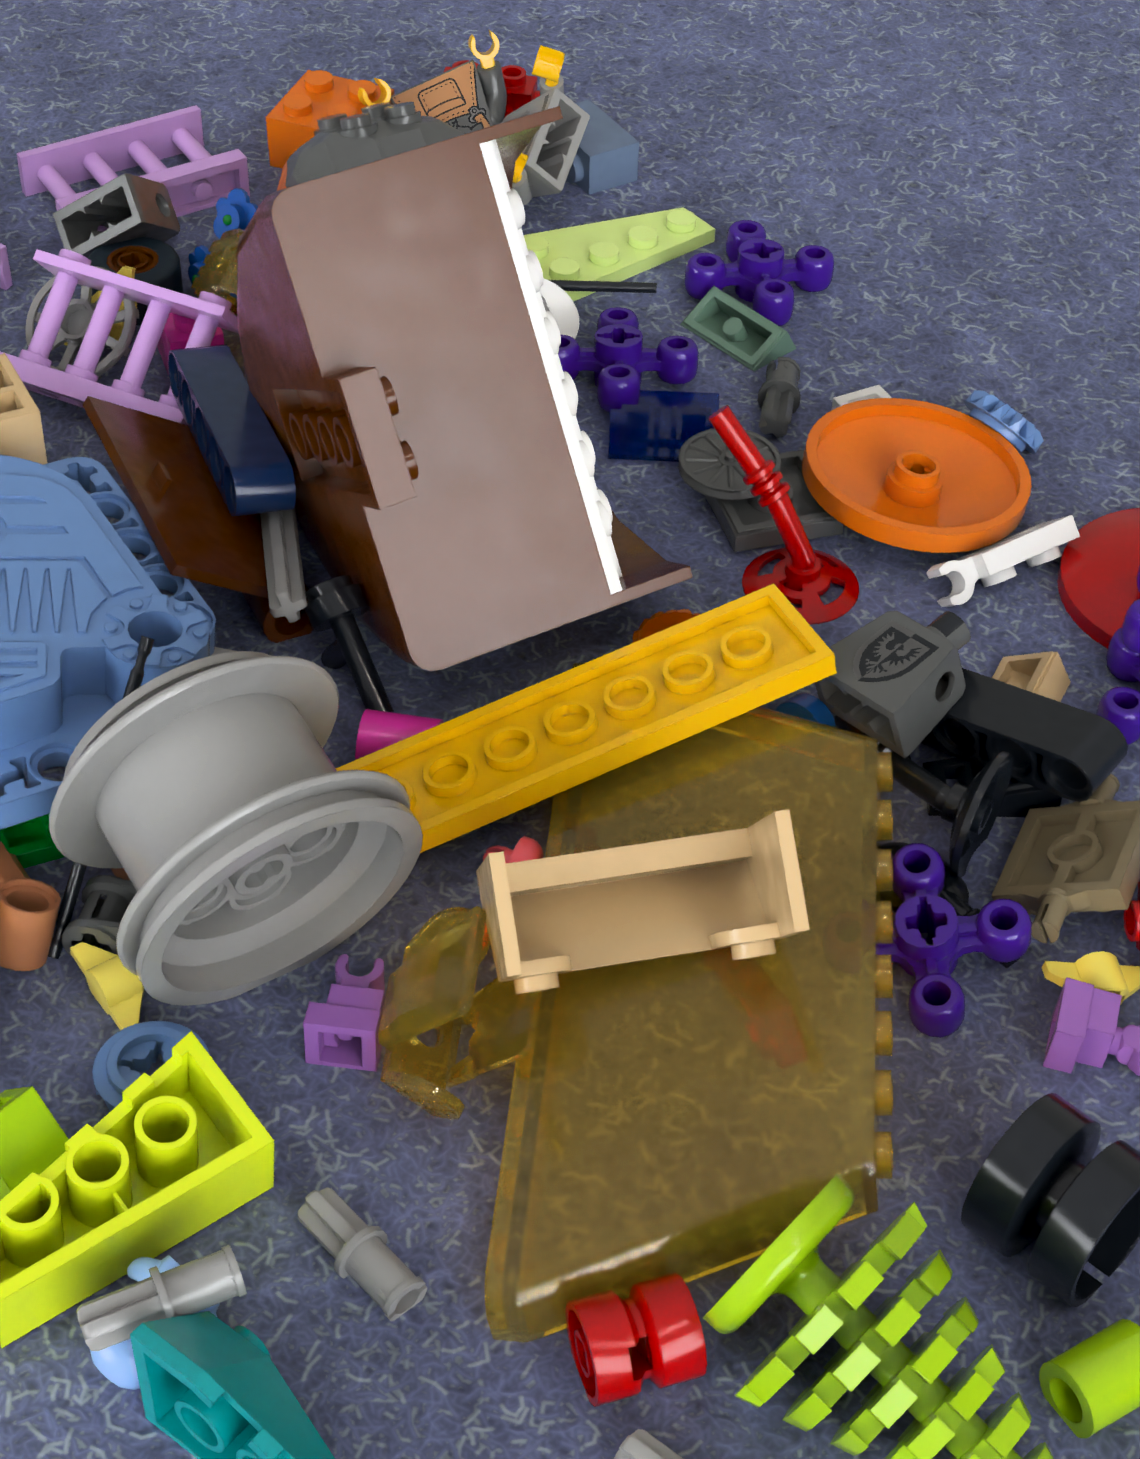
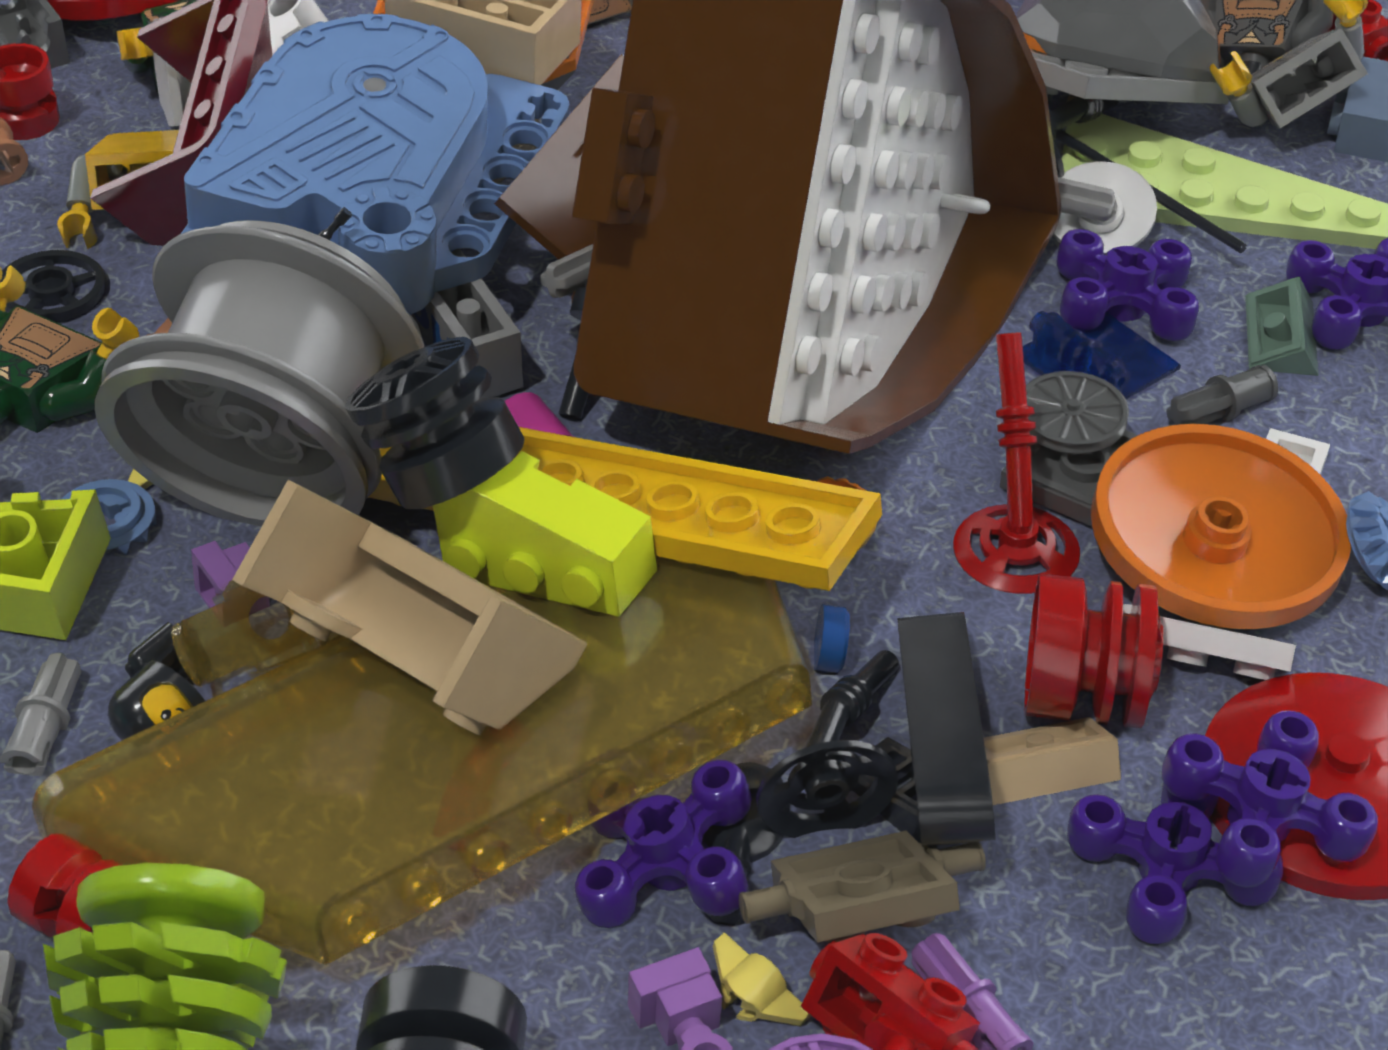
camera: 50 degrees right, 0 degrees up
(443, 1155) = (155, 689): none -> black piece
(468, 745) = (435, 423): none -> black wheel
(588, 784) = (548, 539): none -> neon yellow wedge
(897, 677) = (895, 637): dark grey torso -> none
(998, 587) = (1092, 651): none -> red wheel

